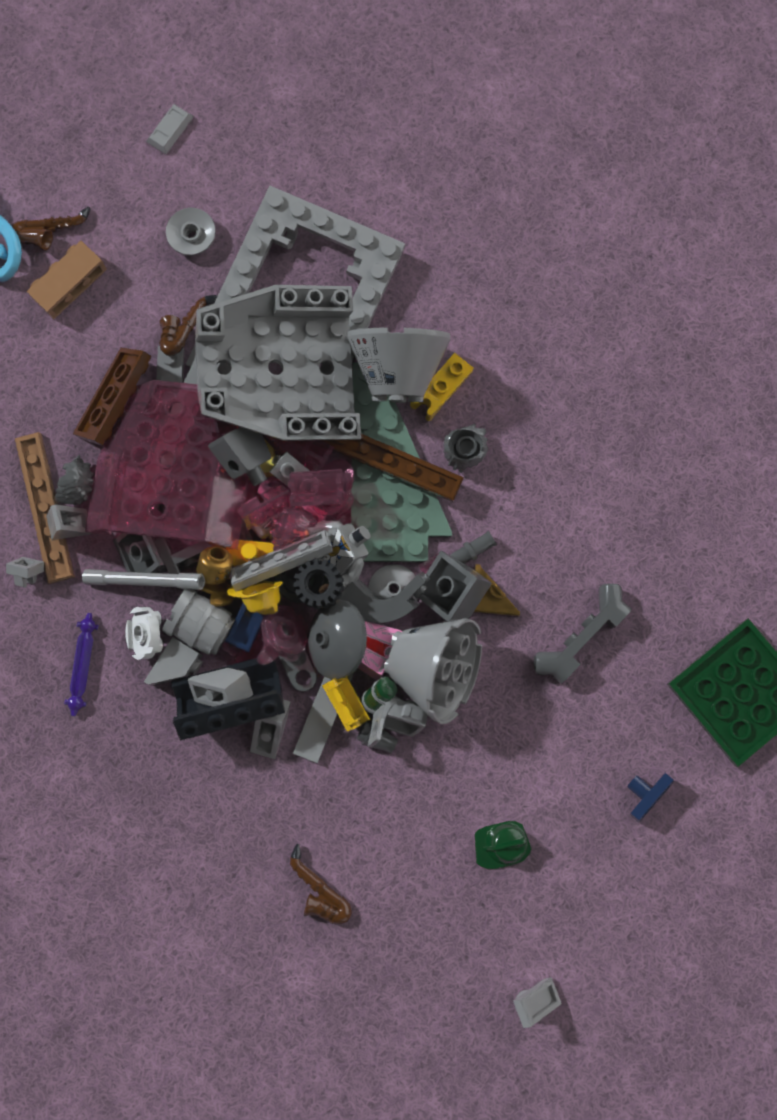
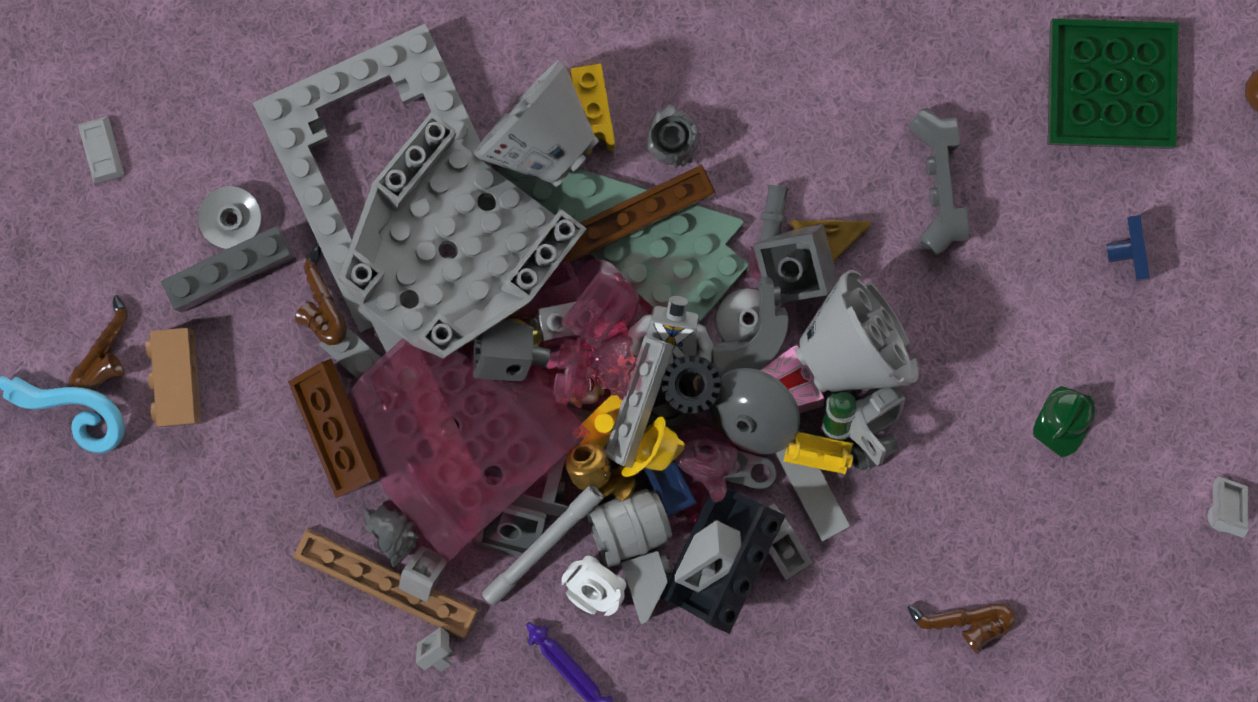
camera: 50 degrees left, 5 degrees up
(142, 247) = (230, 266): none -> dark grey arch

